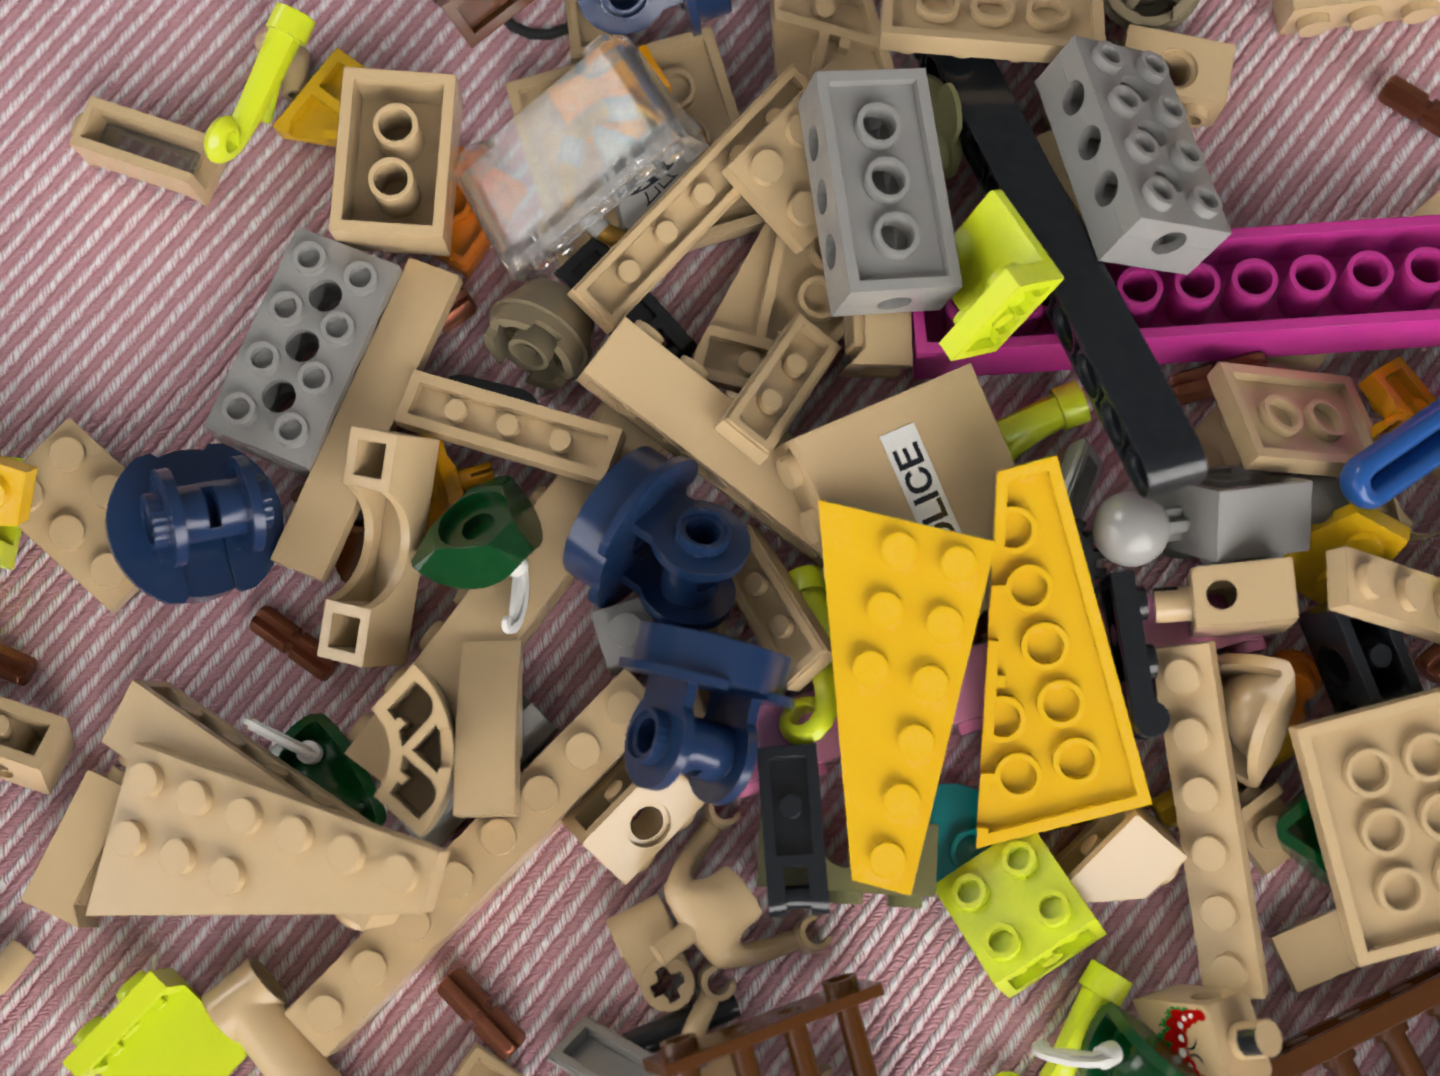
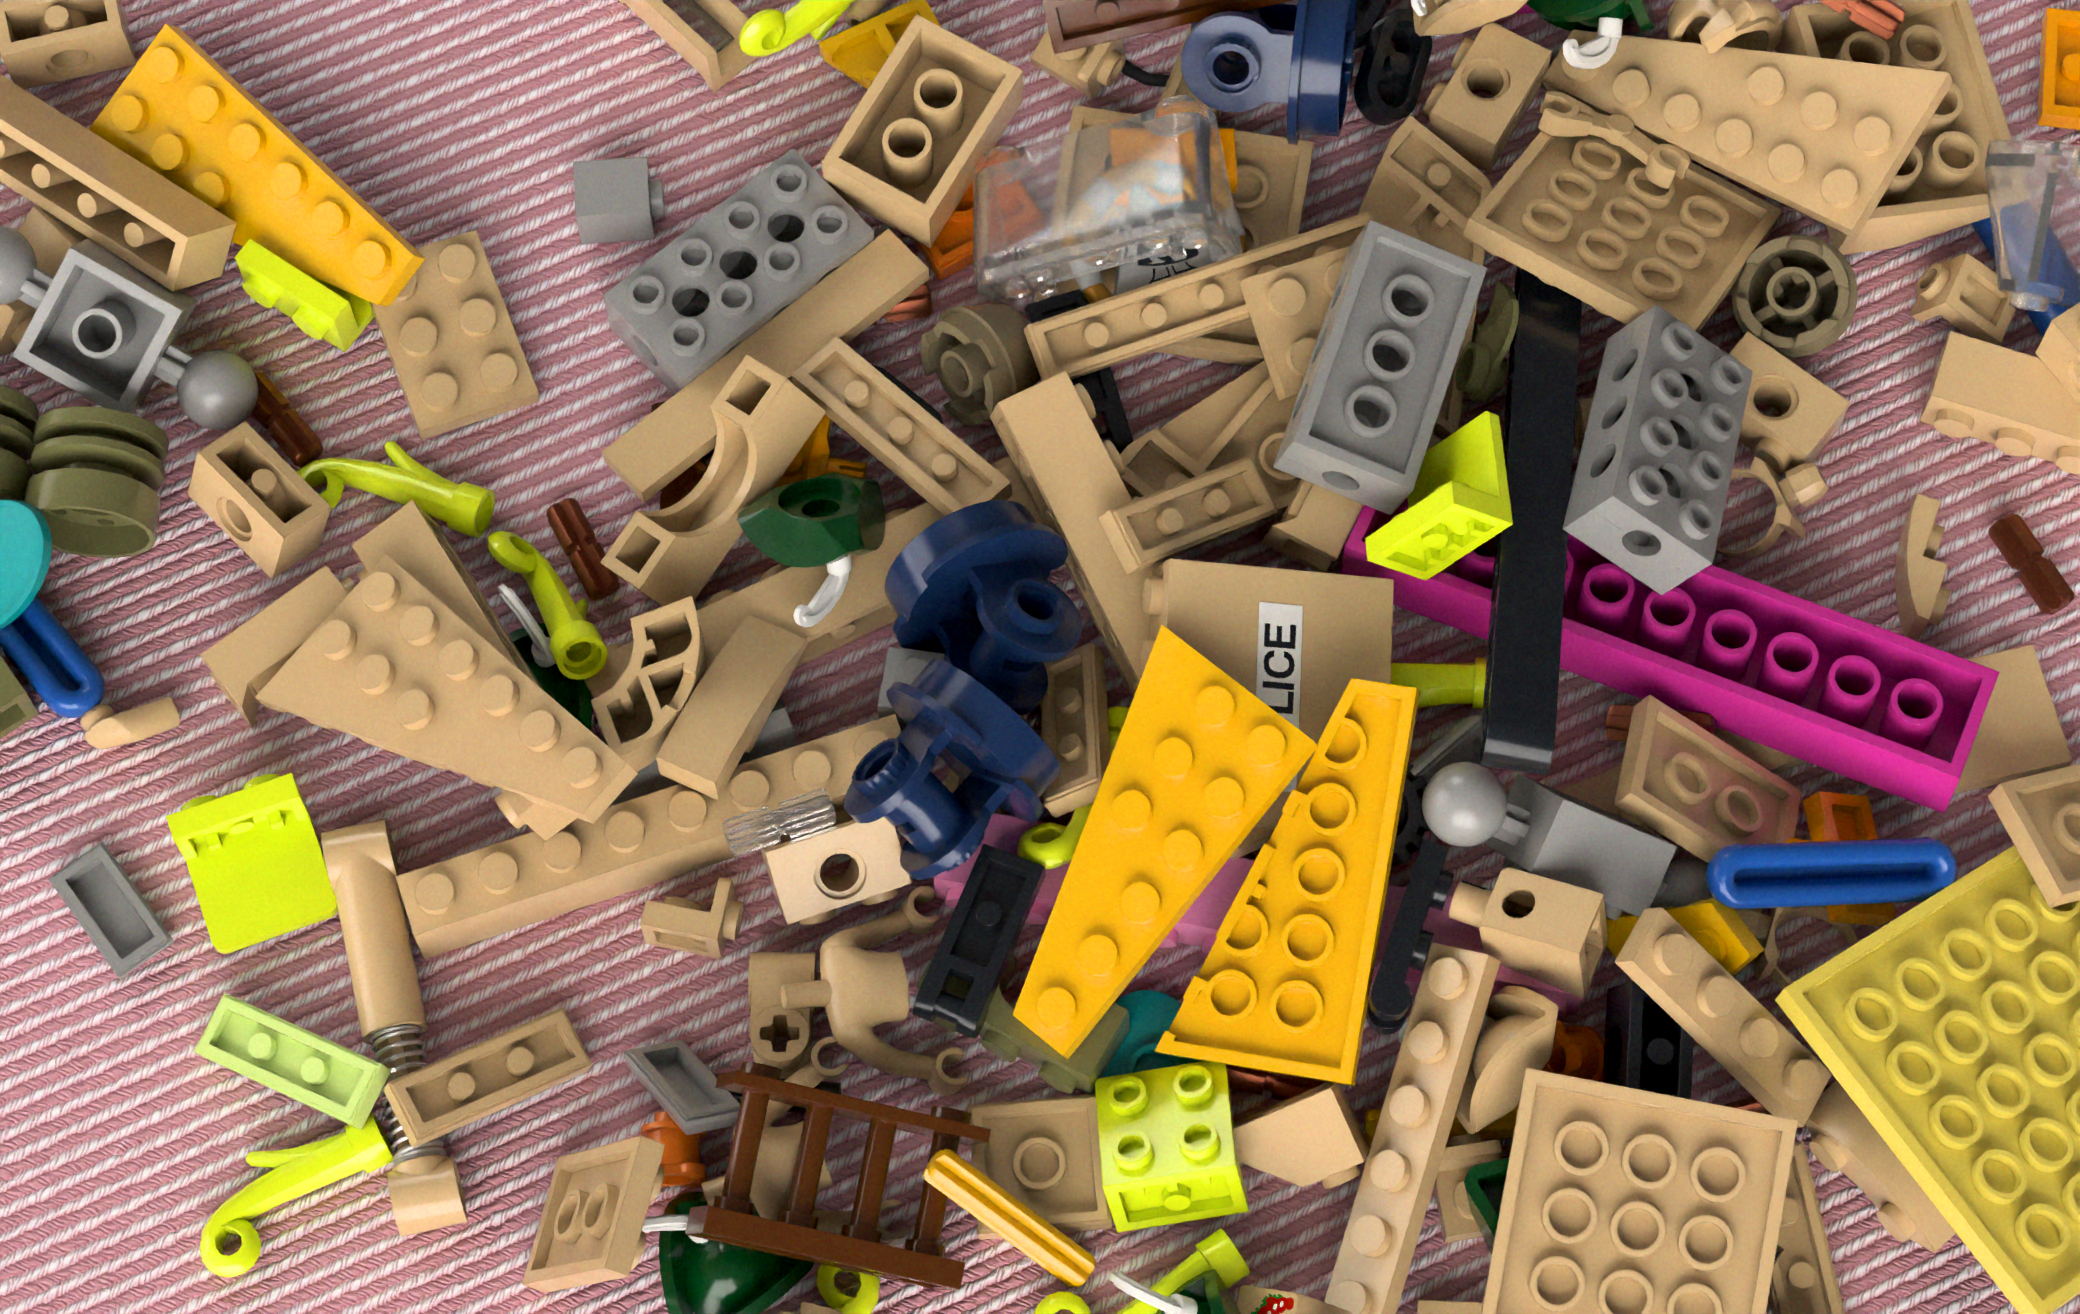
camera: 25 degrees right, 10 degrees down
(124, 656) = (461, 506): none -> neon yellow plant
(173, 336) = (616, 200): none -> light grey brick
(193, 524) = (552, 350): dark blue piece -> none
(330, 737) = (573, 640): none -> neon yellow plant
(492, 1023) = (577, 972): copper piece -> none
(495, 51) = (1081, 68): none -> tan bracket
(538, 923) = (686, 928): none -> tan bracket
(568, 821) = (764, 827): none -> clear piece
(926, 977) = (1045, 1158): none -> tan tile
(927, 1042) = (1009, 1218): none -> yellow axle
(1229, 130) = (1801, 486): none -> tan piece
(1349, 165) = (1917, 573): none -> tan slope

